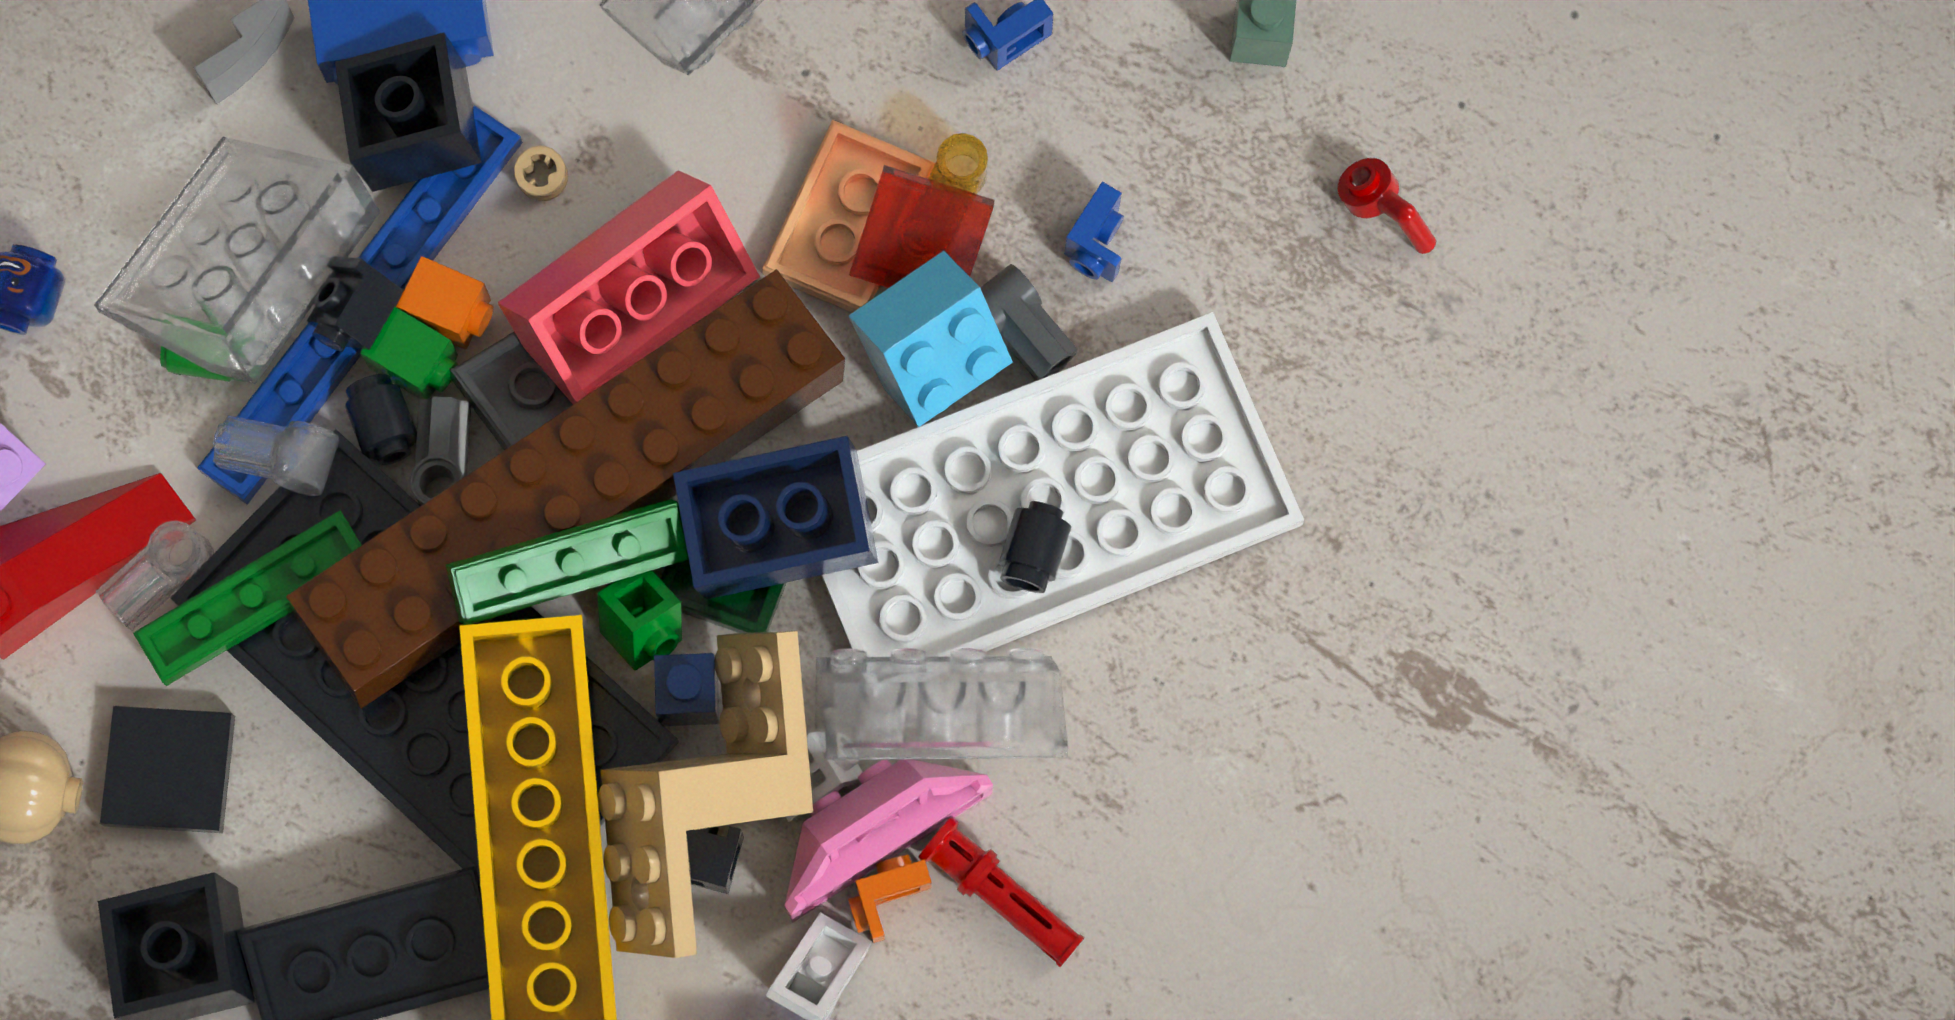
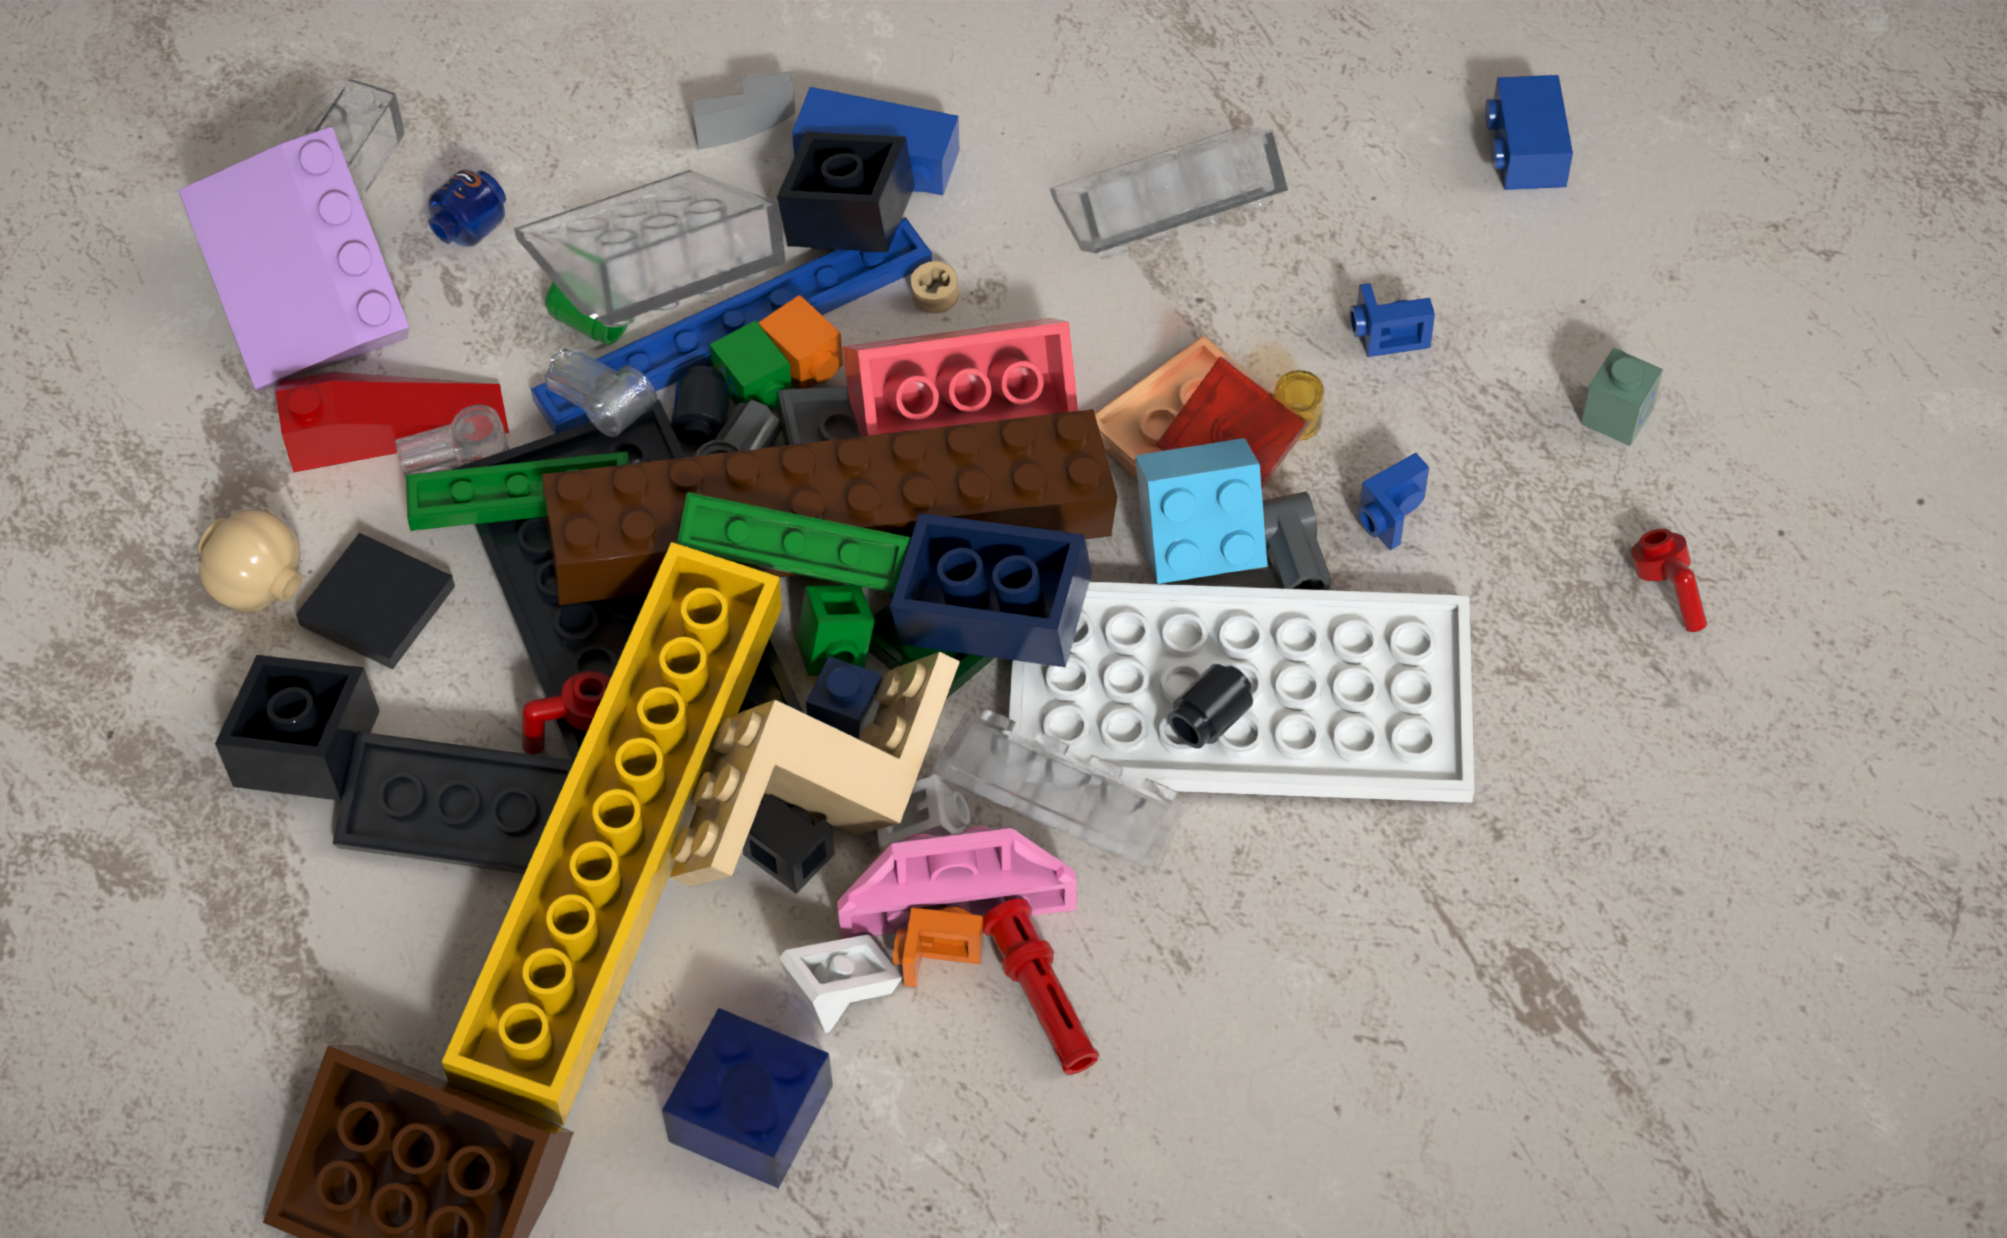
camera: 30 degrees right, 20 degrees down
(352, 305) = (722, 305): black brick -> none
(430, 812) = (570, 705): none -> red plate

